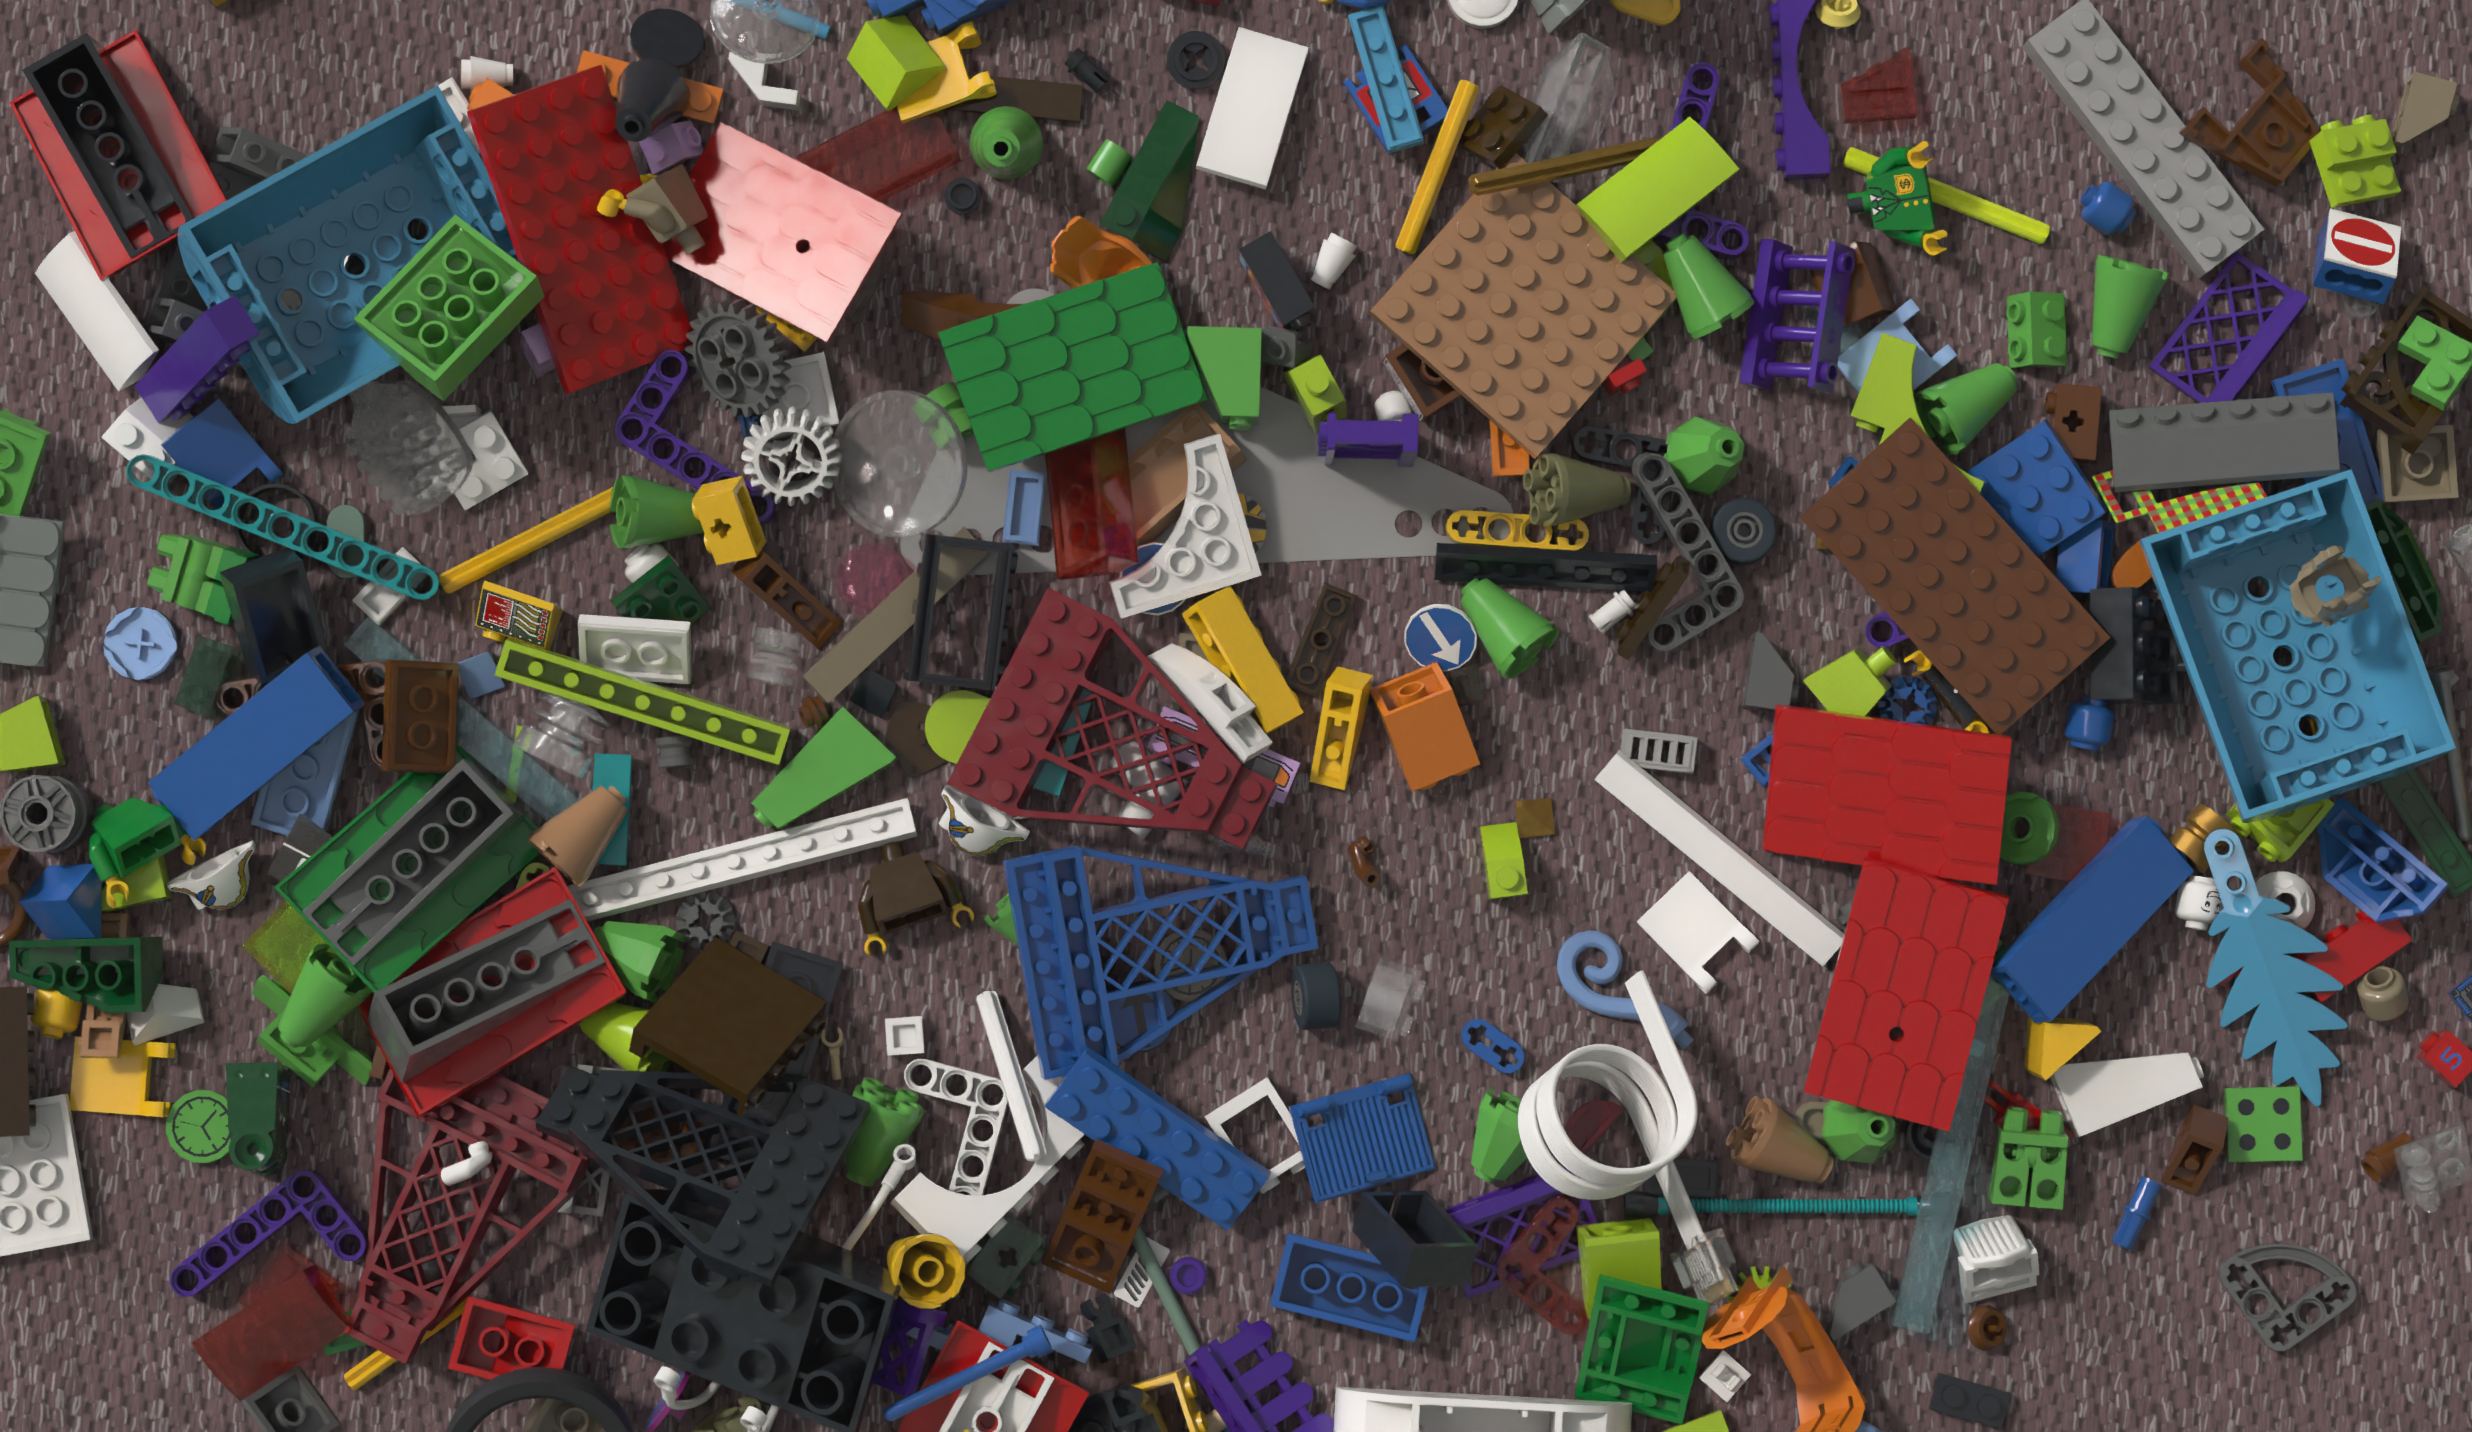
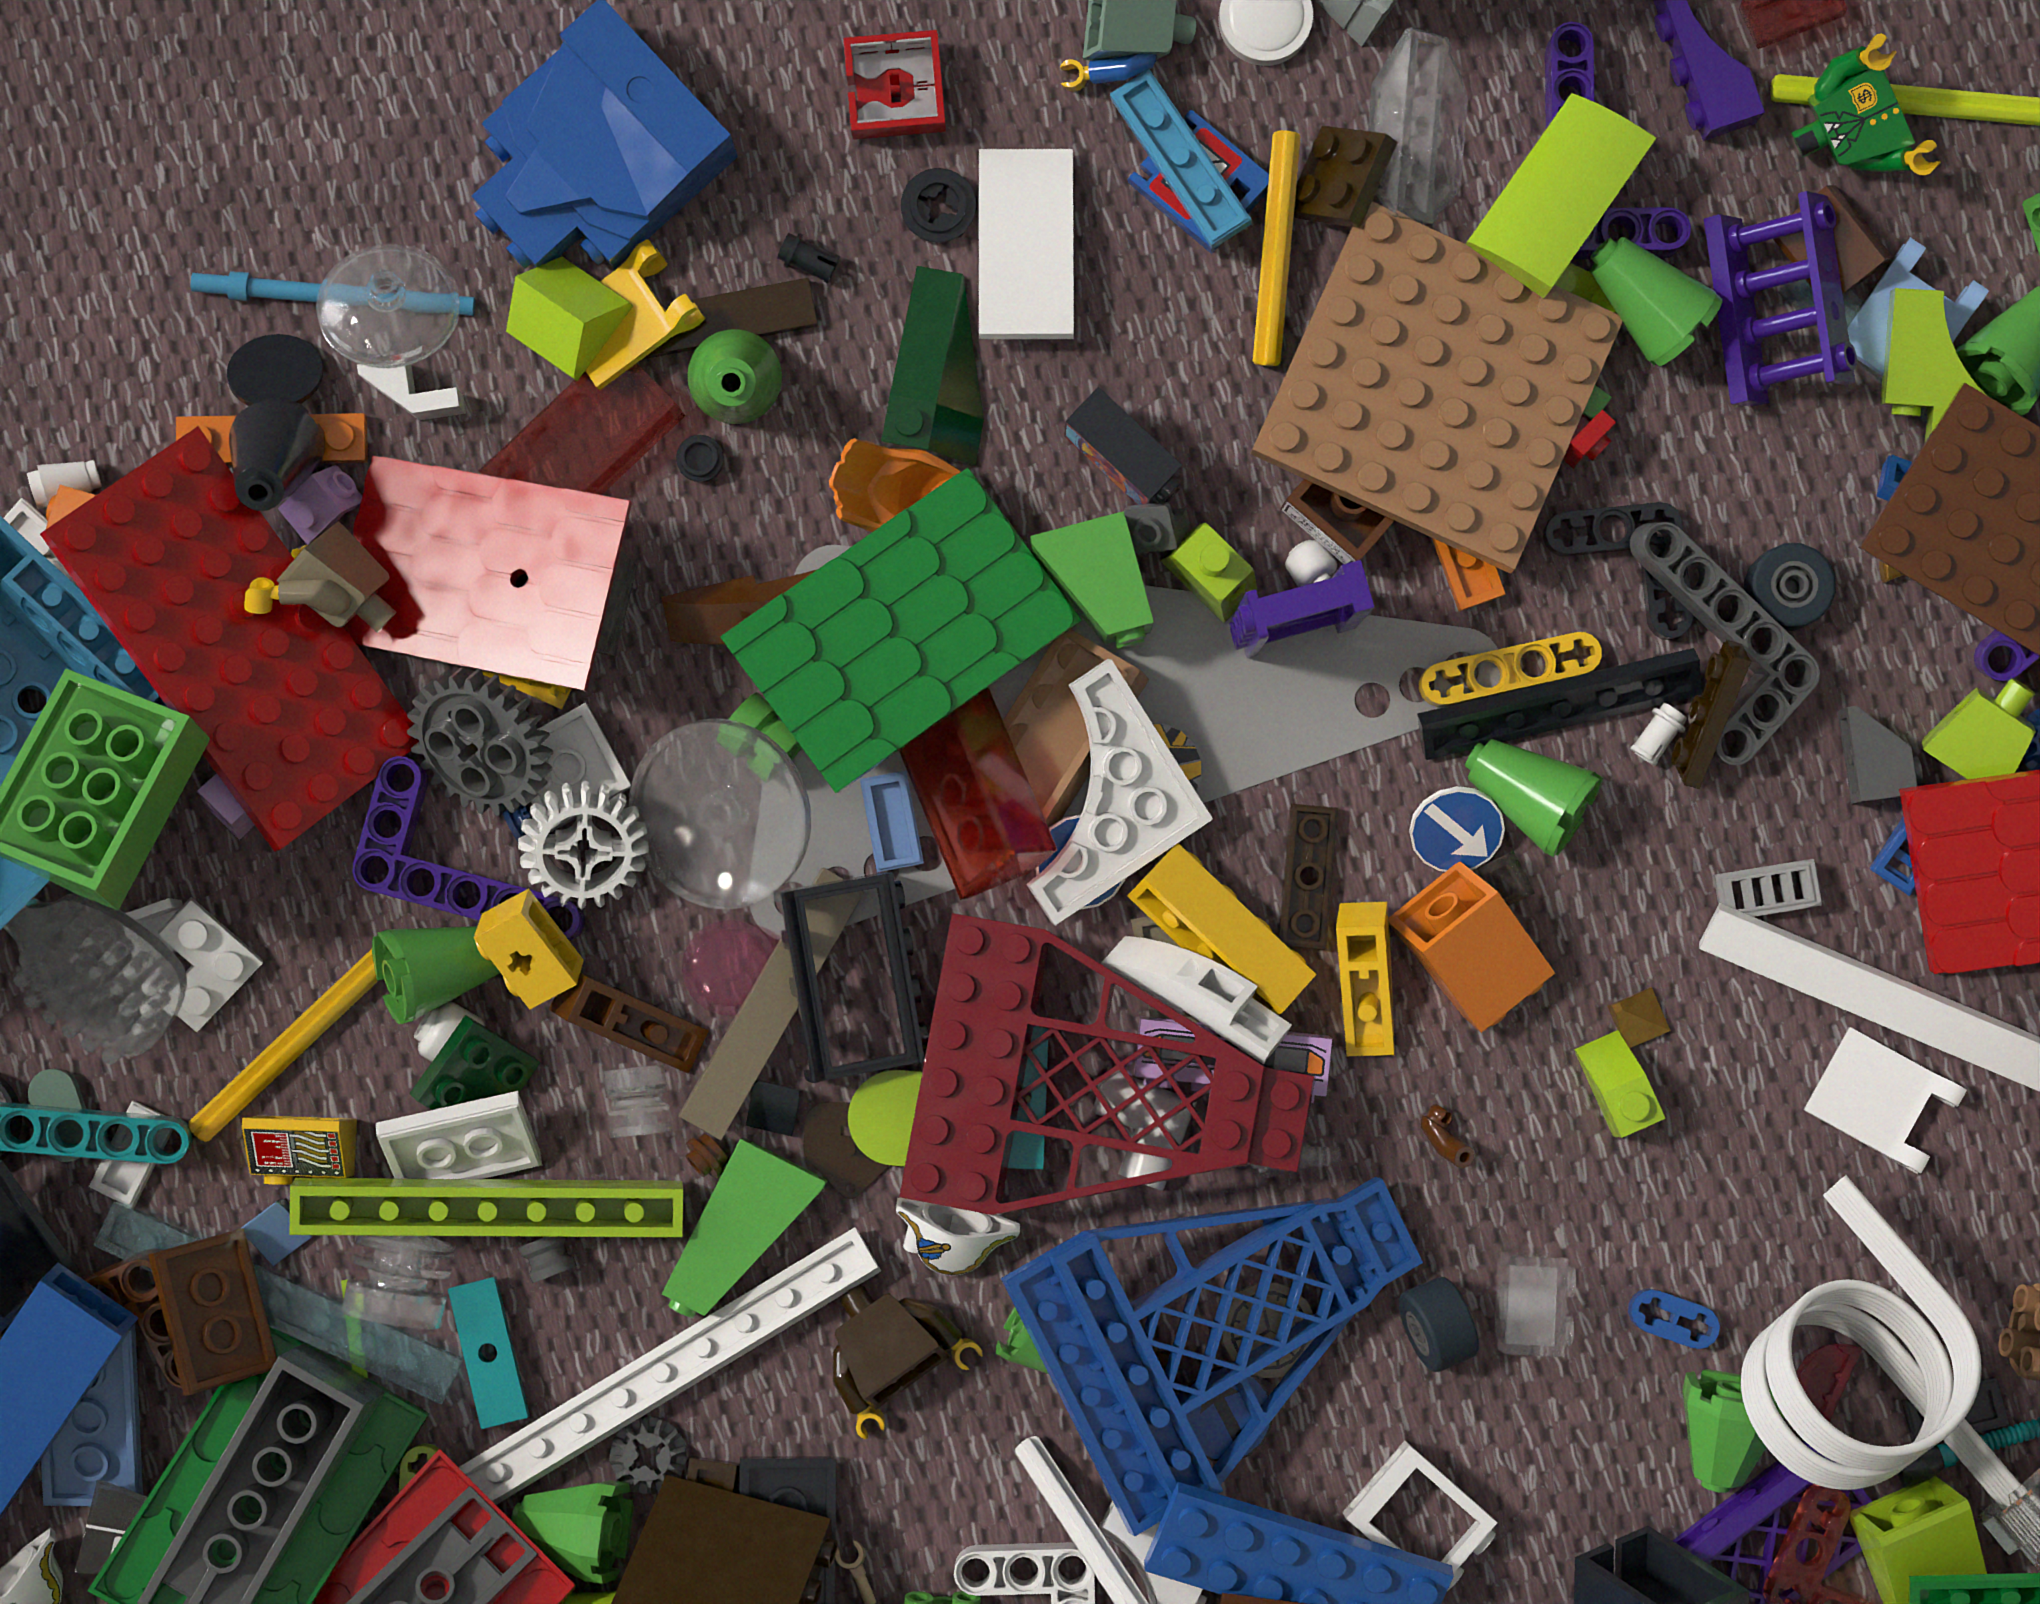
camera: 15 degrees left, 0 degrees up
(581, 833) = (459, 1398): medium nougat cone -> none
(904, 1035) = (940, 1526): white plate -> none
(1109, 163) = (869, 364): bright green gear -> none
(1332, 260) = (1181, 402): white cone -> none
(1362, 1138) = (1549, 1485): blue window -> none
(1558, 167) = (1430, 202): pearl gold axle -> none
(1571, 490) = (1563, 598): olive cone -> none
(1607, 1005) = (1788, 1225): medium blue plant -> none
(1704, 454) = (1717, 503): bright green cone -> none

